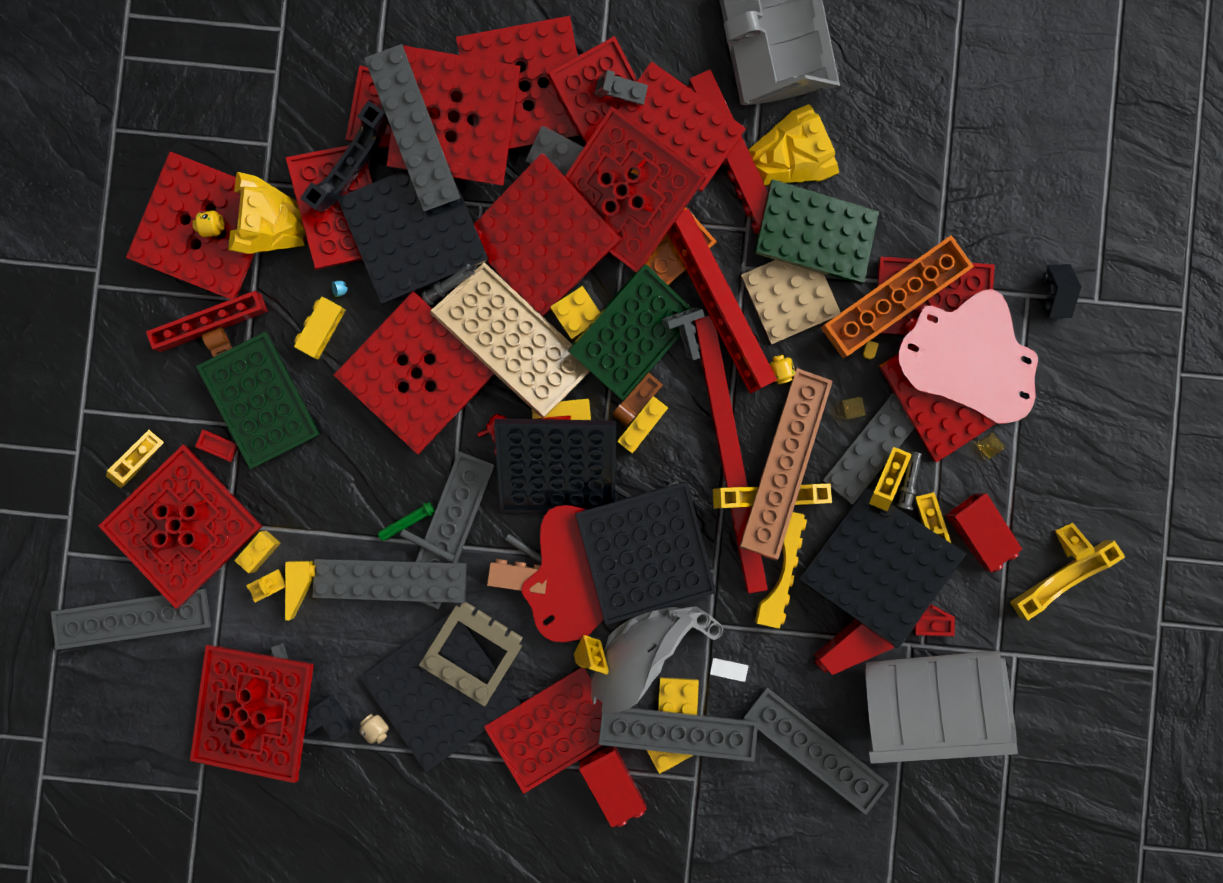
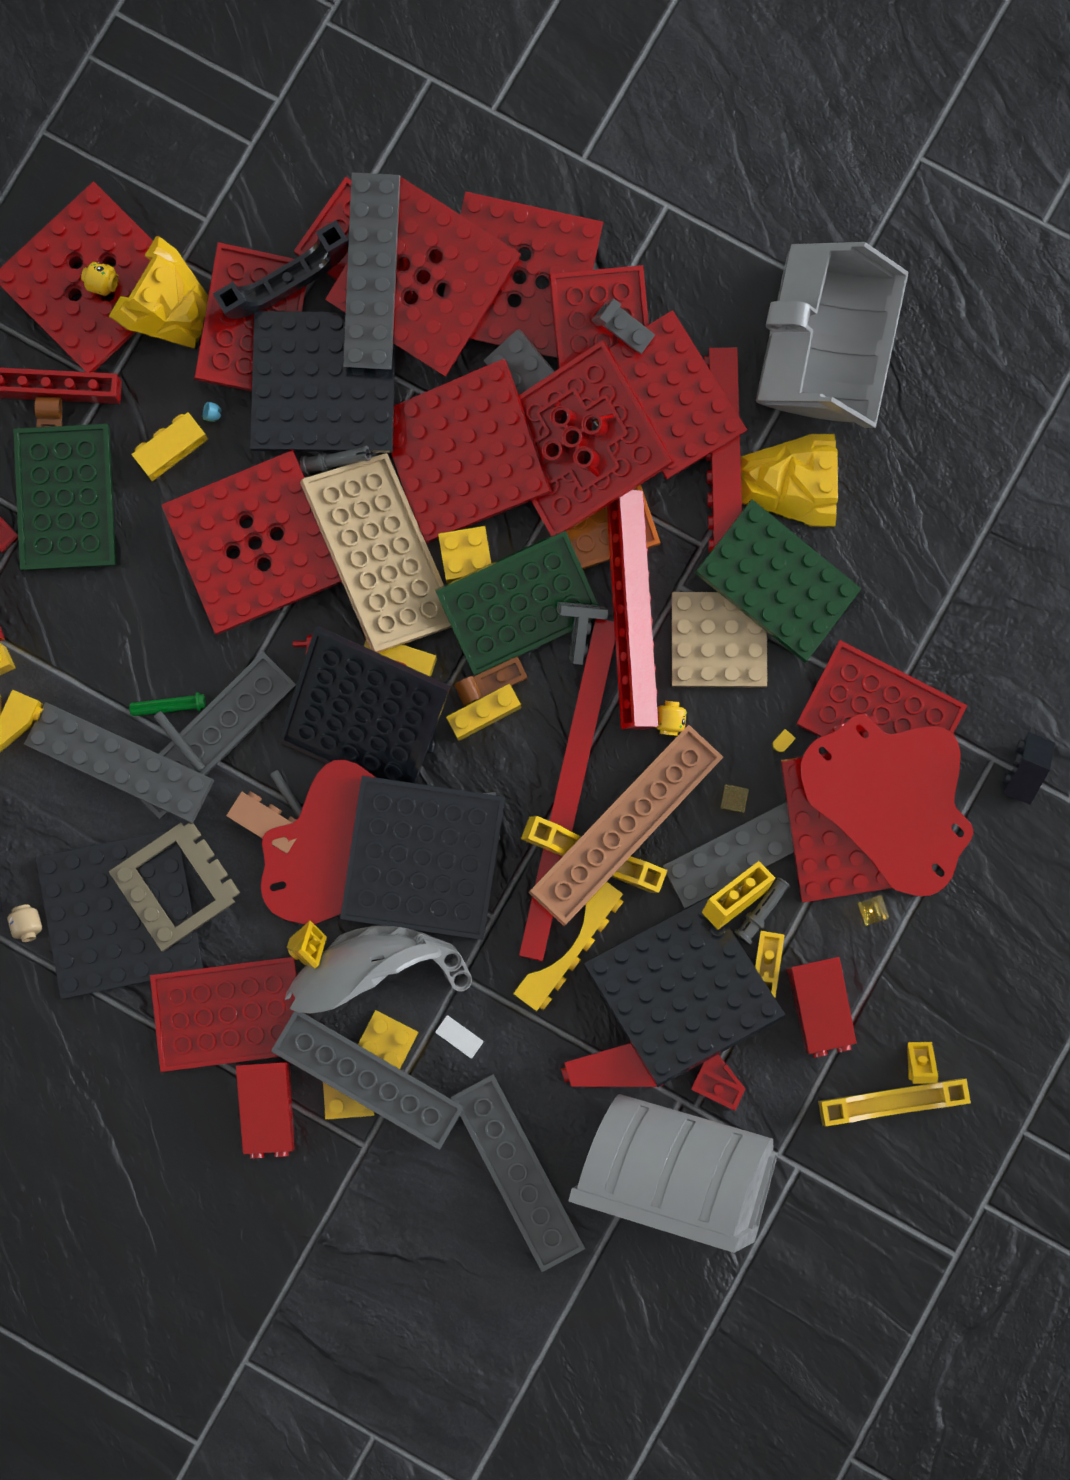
camera: 25 degrees right, 5 degrees down
(897, 297) = (835, 691): orange brick -> none

